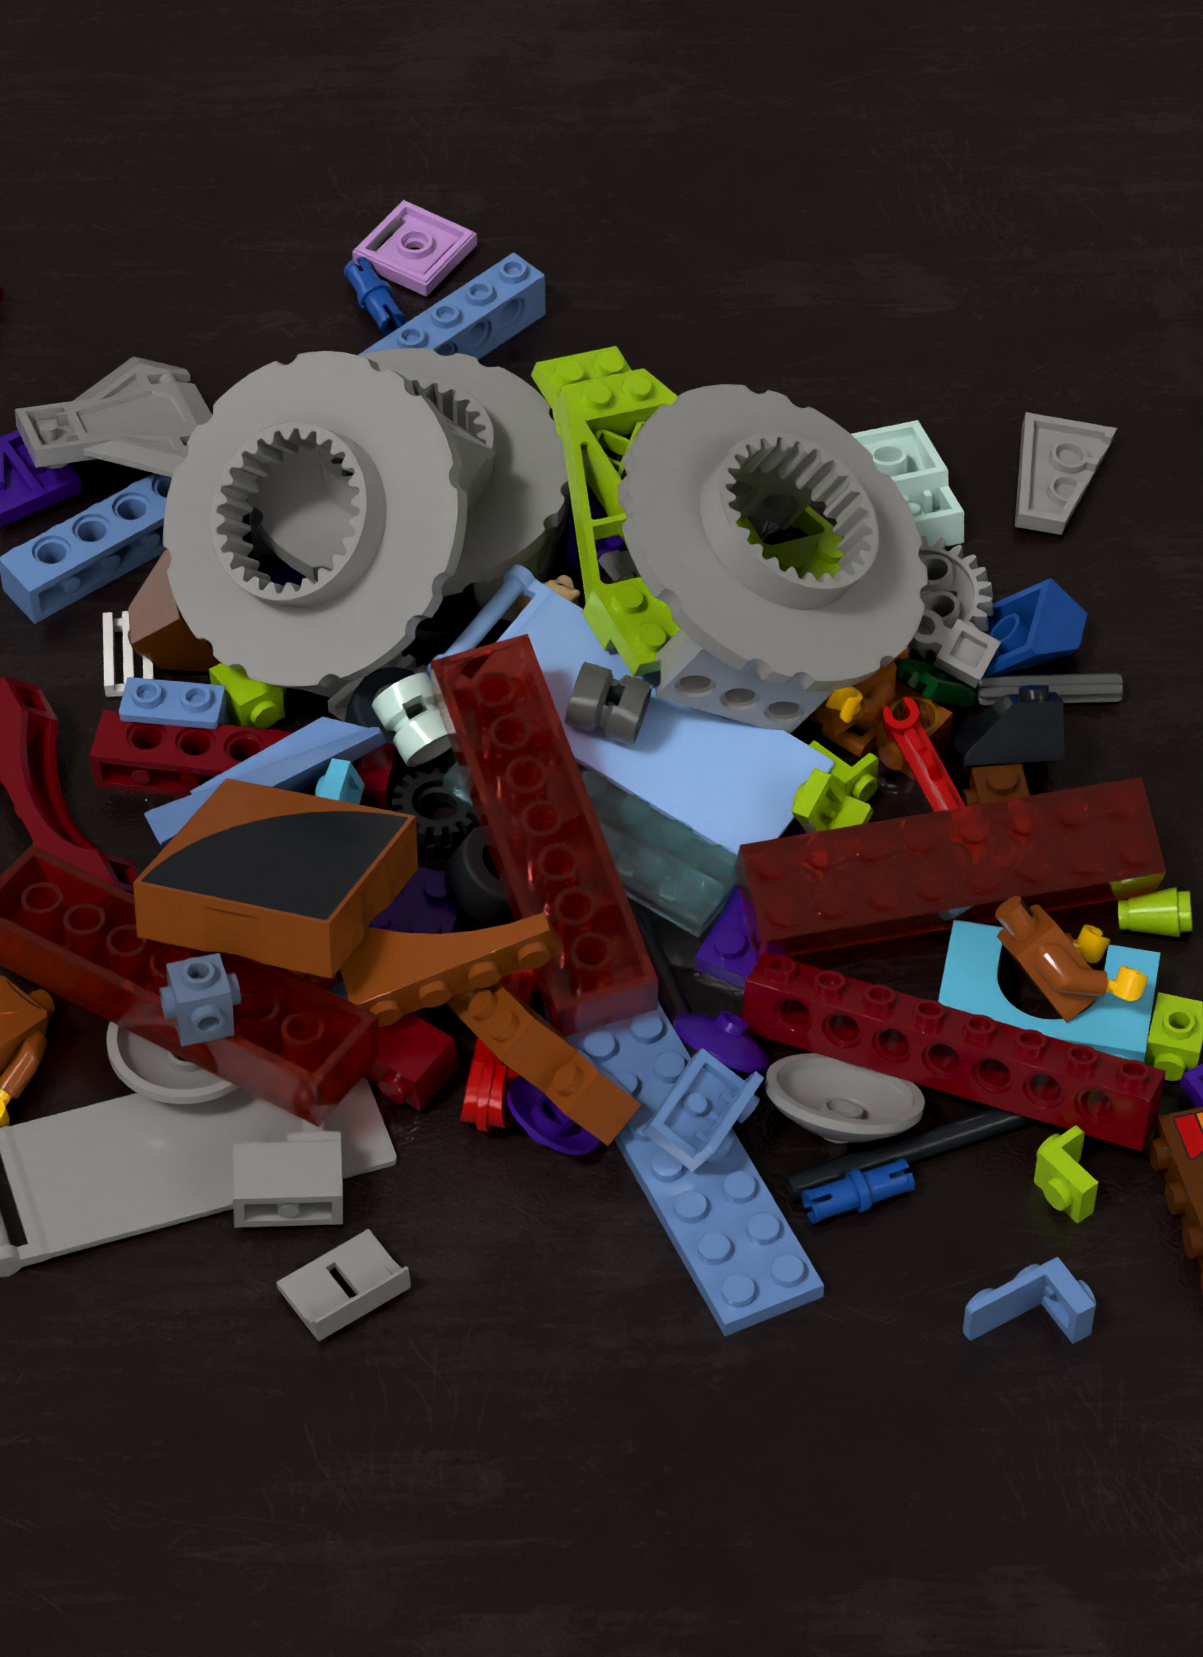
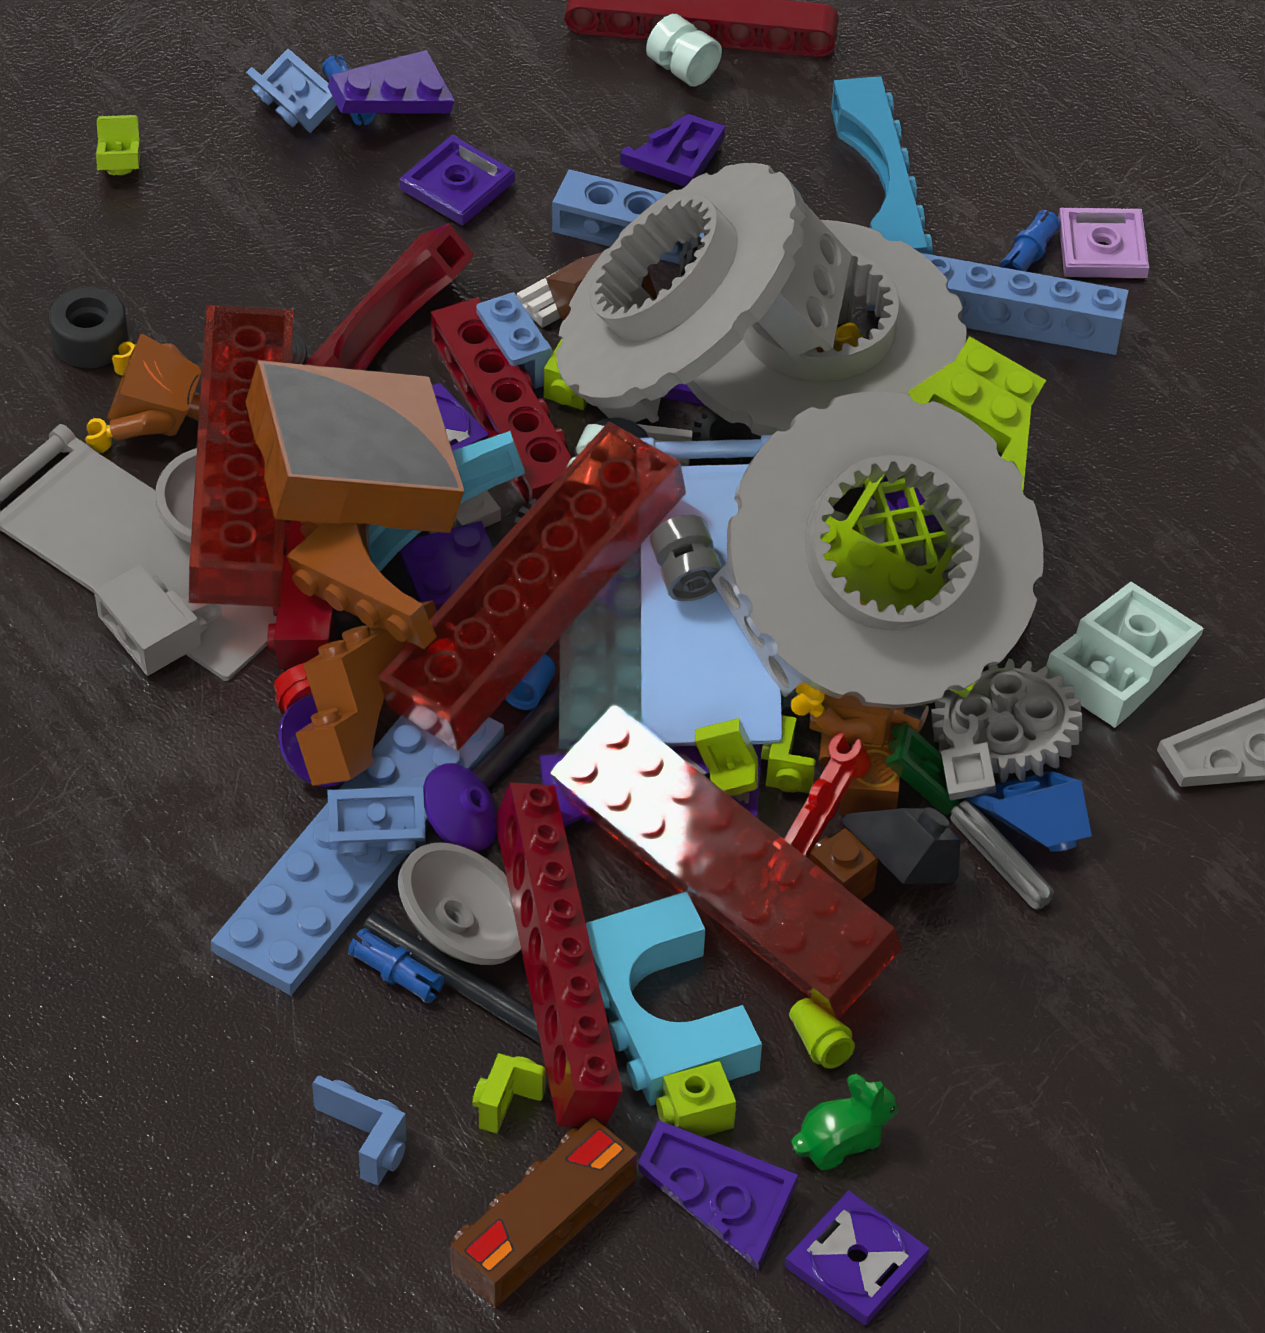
camera: 55 degrees right, 0 degrees up
(125, 322) = (865, 122): none -> dark azure arch
(130, 418) = (718, 140): light grey plate -> none
(200, 999) = (201, 457): sand blue brick -> none
(286, 765) = (488, 415): medium blue wedge -> none
(366, 1270) = (72, 690): light grey piece -> none
(1059, 963) = (691, 972): dark orange torso -> none

